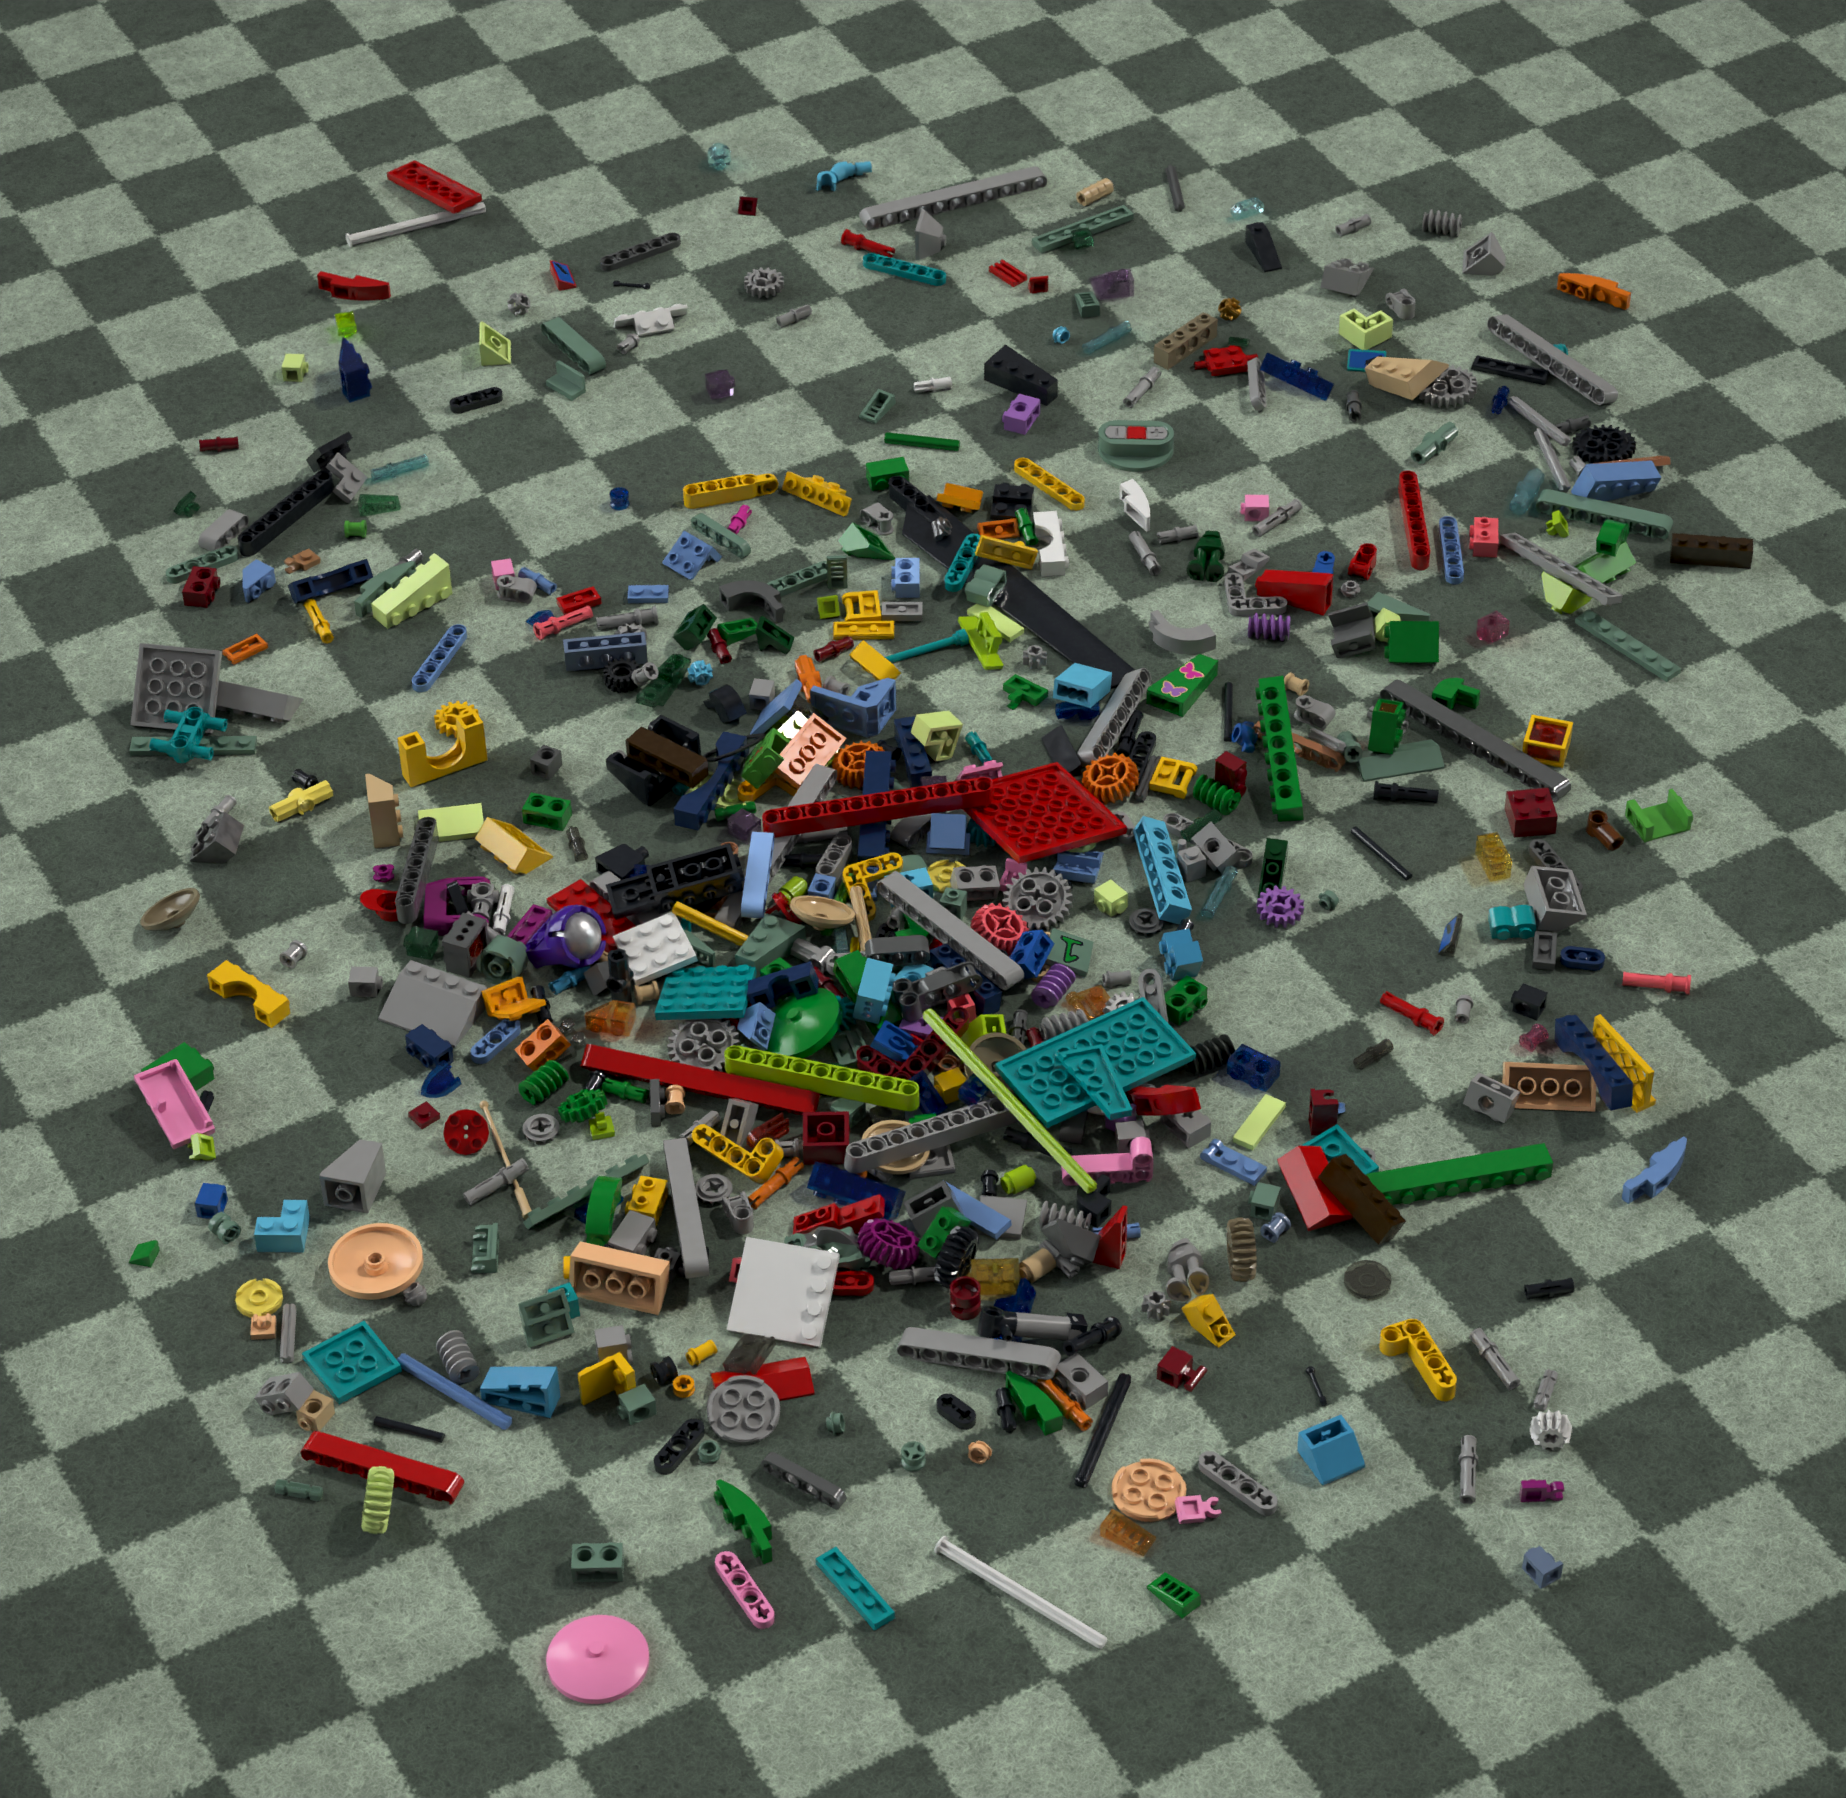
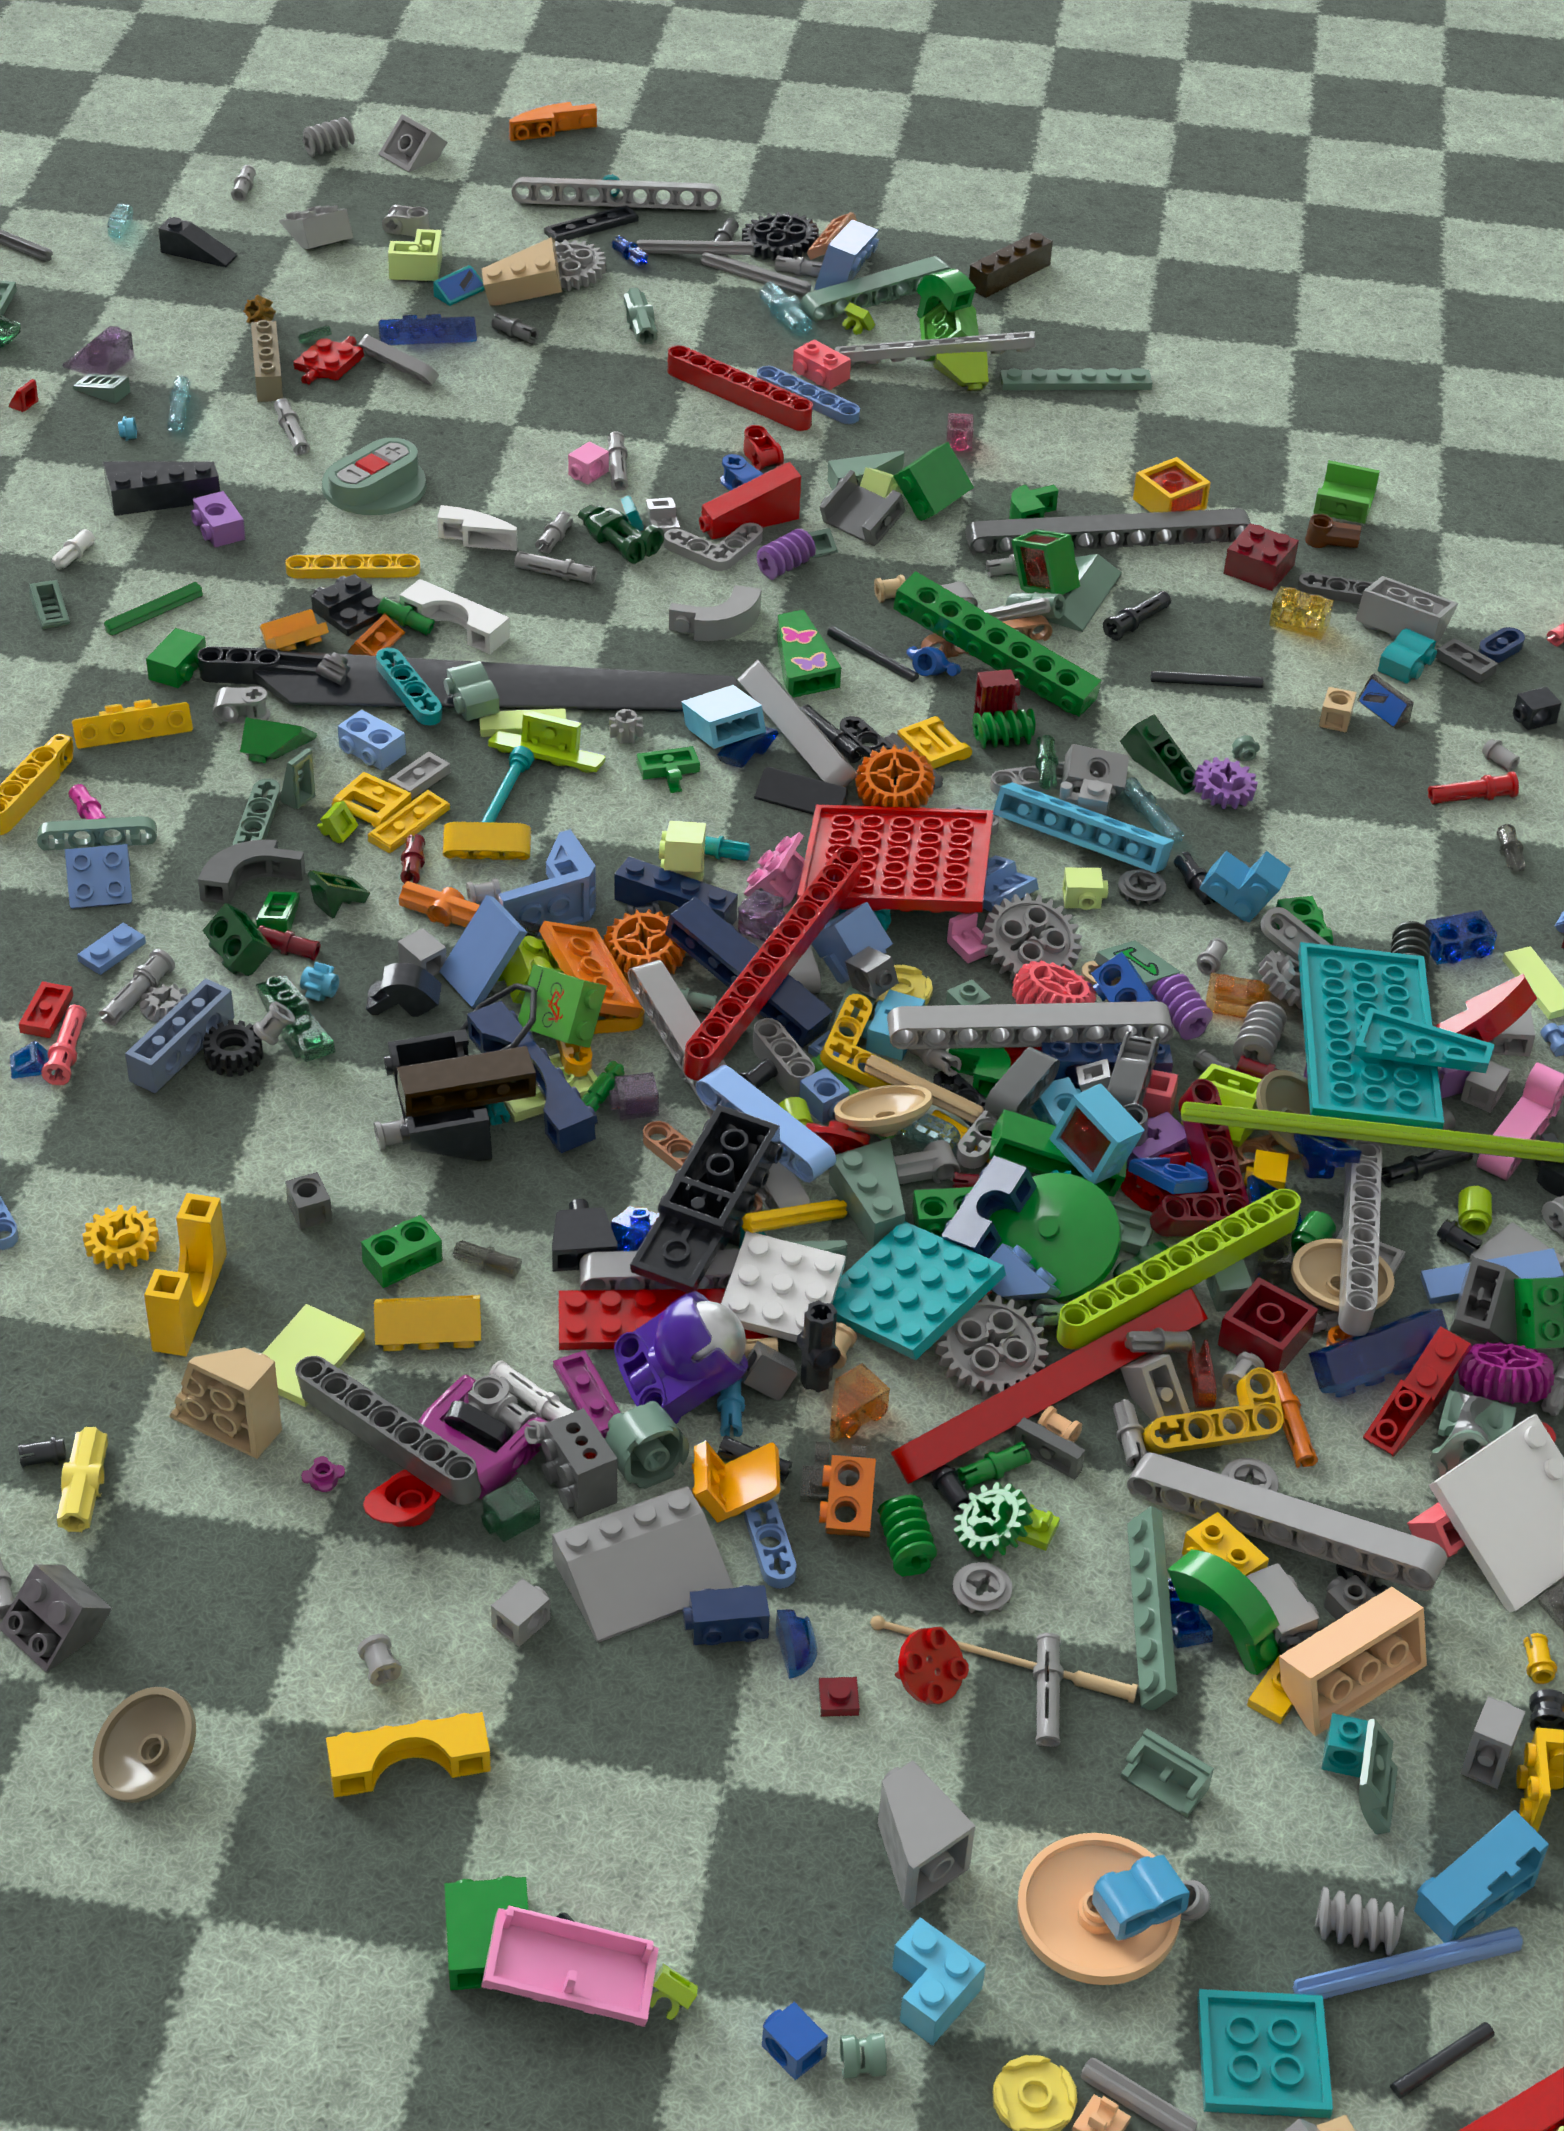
camera: 55 degrees left, 0 degrees up
(383, 1264) = (1140, 1897): none -> dark azure brick
(739, 1213) = (1320, 1480): light grey piece -> none
(762, 1098) = (1159, 1341): none -> flat silver axle
(926, 852) = (871, 972): none -> dark grey brick
(979, 882) = (950, 966): light grey brick -> none
(1006, 552) = (439, 646): yellow piece -> none
(1230, 551) = (632, 513): none -> teal tile
(1306, 635) = (823, 542): none -> sand green slope
(1415, 918) = (1337, 709): none -> tan brick

